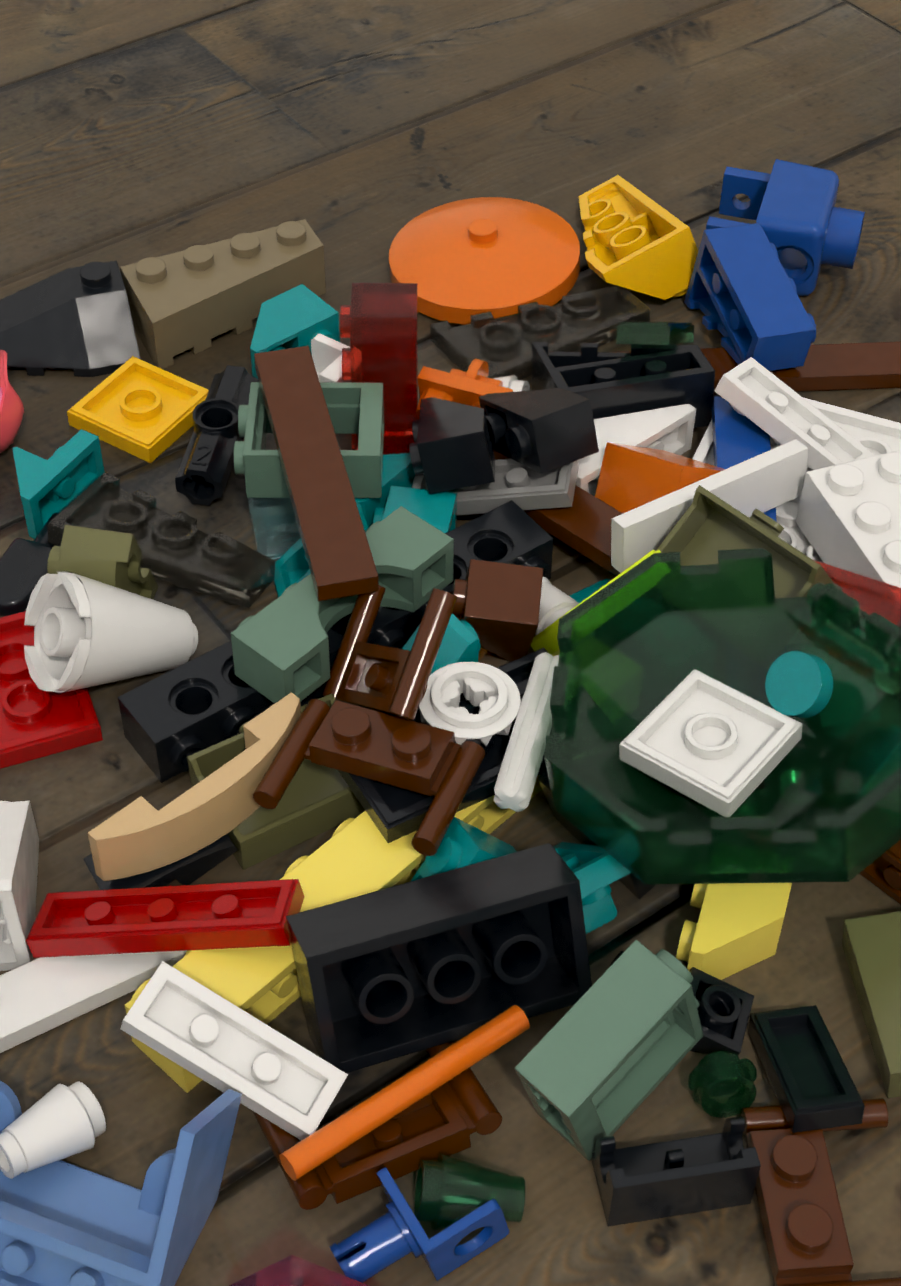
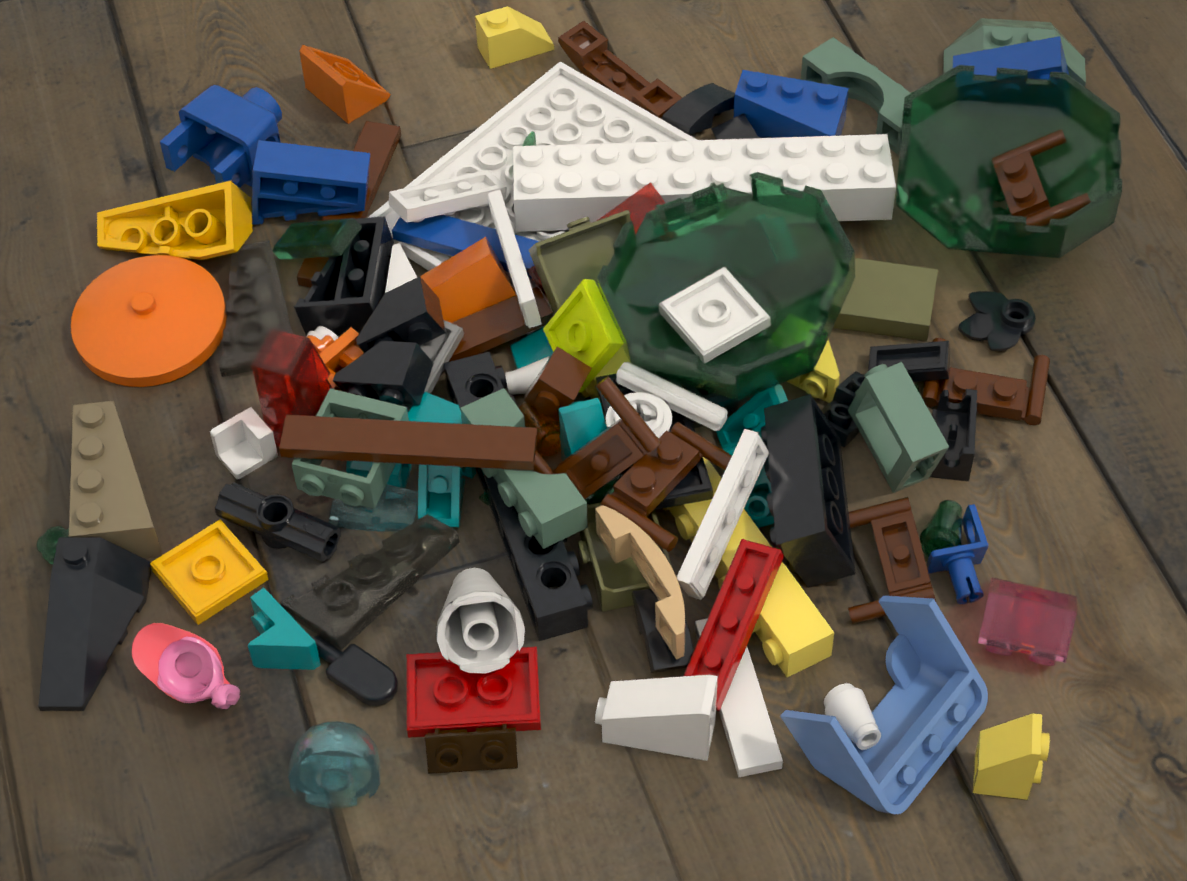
camera: 70 degrees left, 5 degrees up
(104, 557) = (412, 612): olive cylinder -> none
(233, 1051) = (844, 601): white plate -> none
(292, 322) = (183, 455): teal slope -> none
(332, 840) = (722, 515): none -> white tile
(403, 1092) = (884, 532): orange bar -> none
(799, 684) = (703, 255): teal tile -> none

